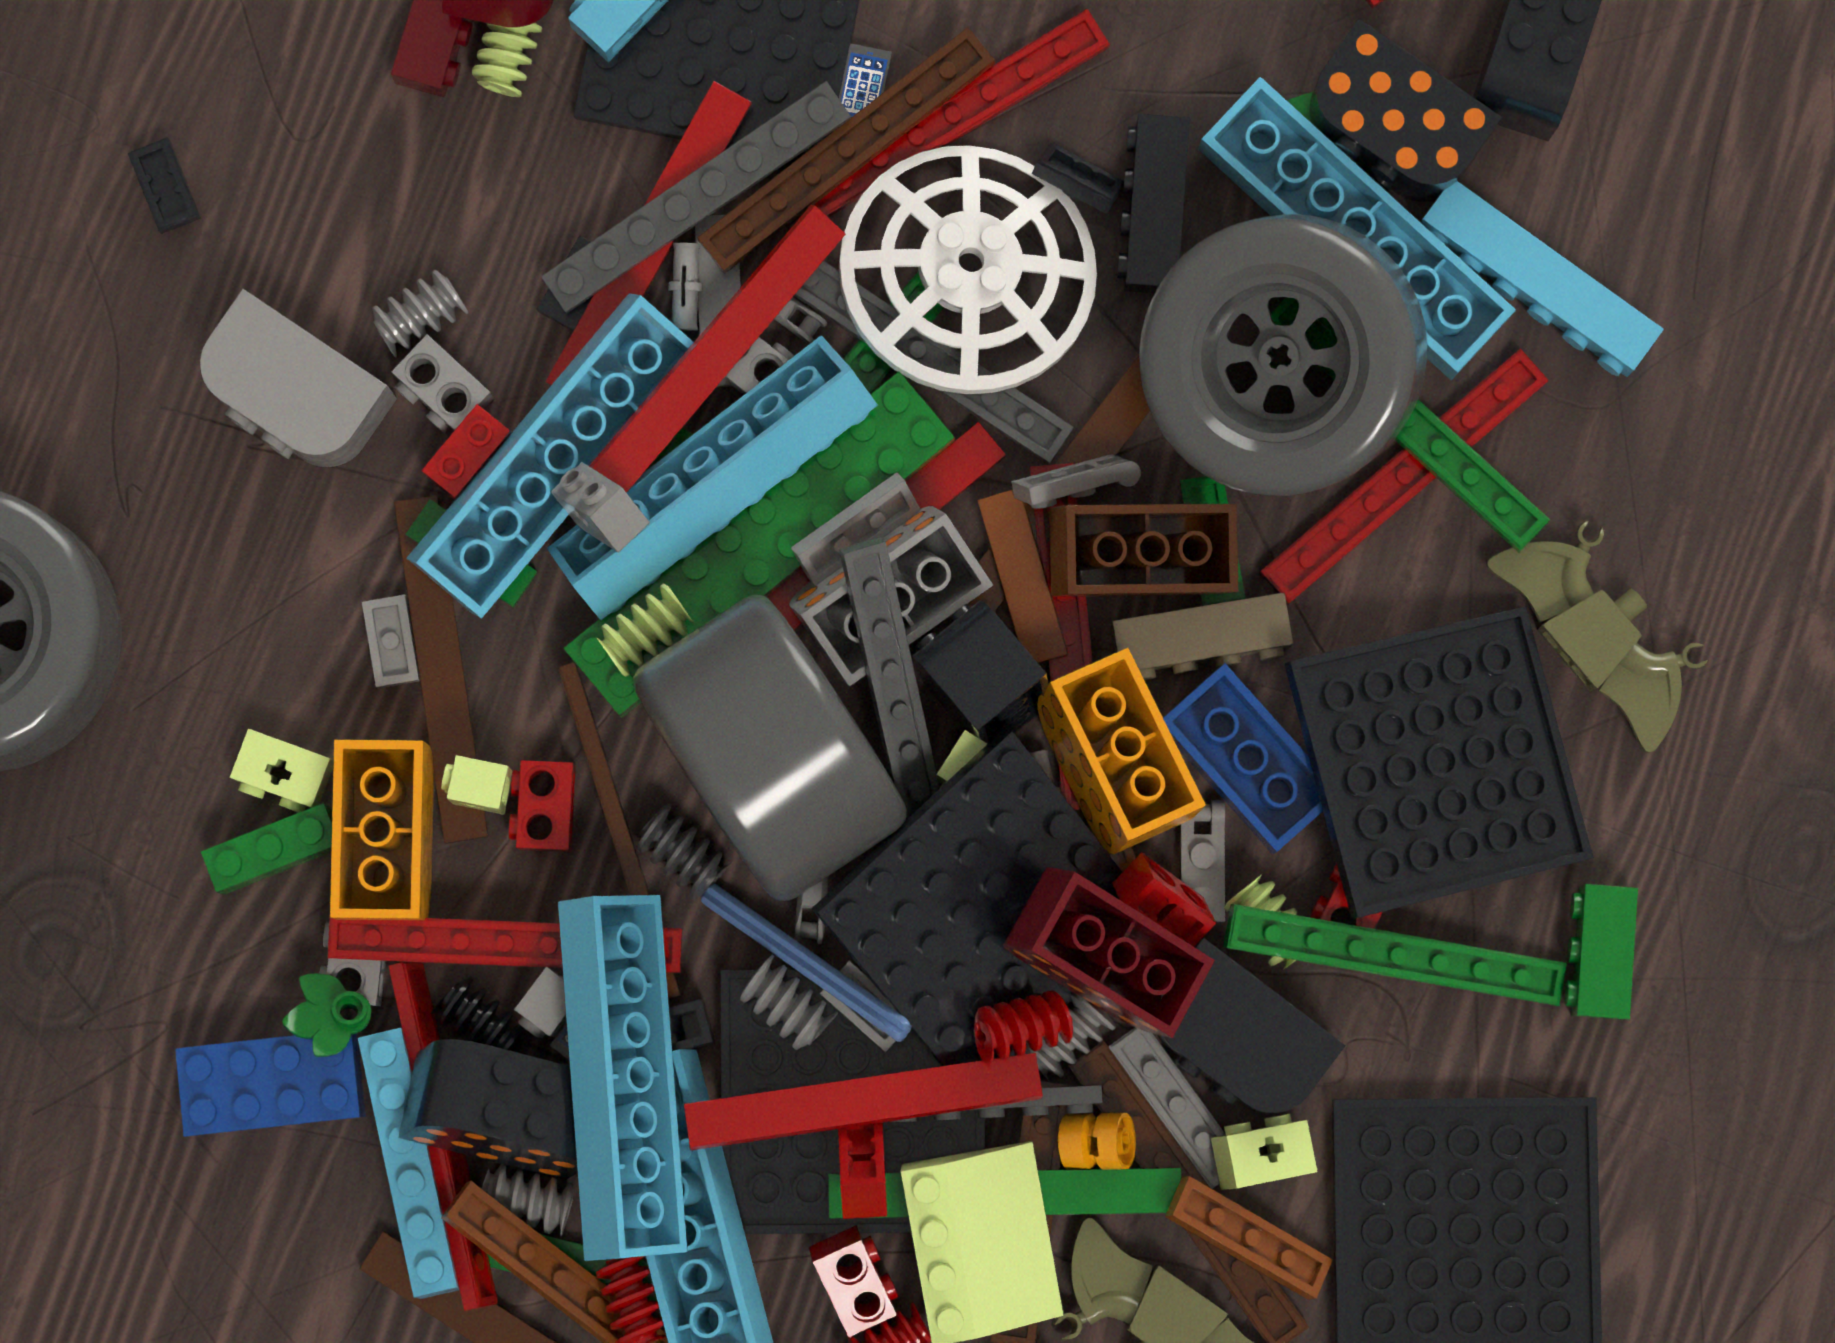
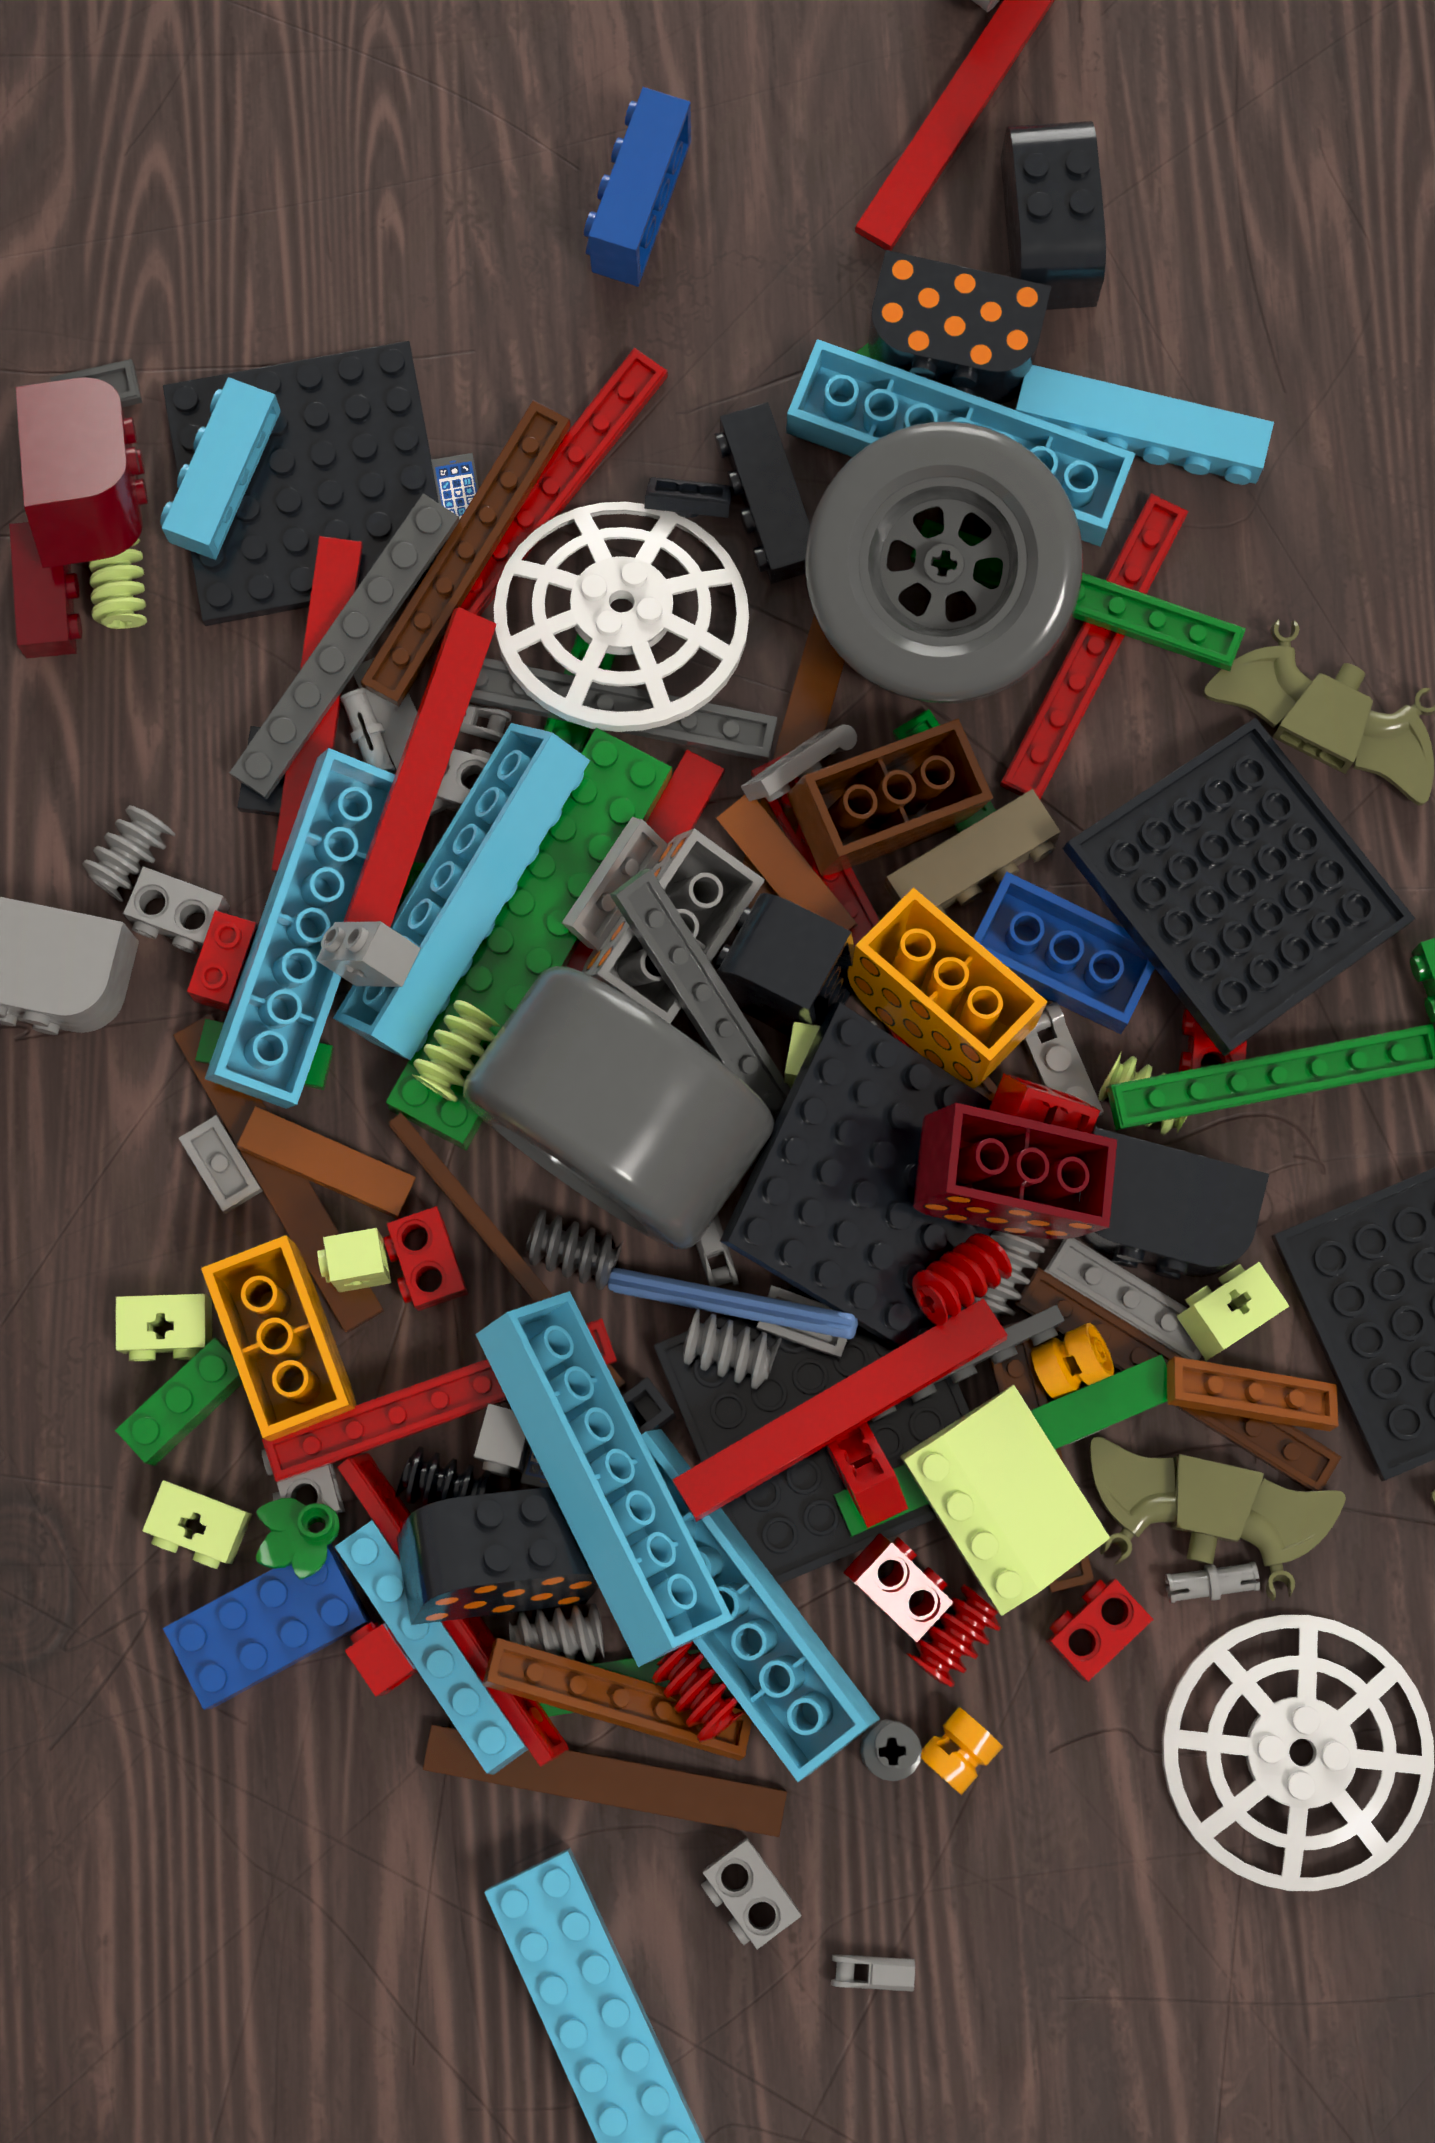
camera: 20 degrees left, 5 degrees down
(266, 971) = (177, 1505): none -> yellowish green brick
(358, 1154) = (380, 1658): none -> red brick
(488, 679) = (326, 1162): none -> dark orange tile

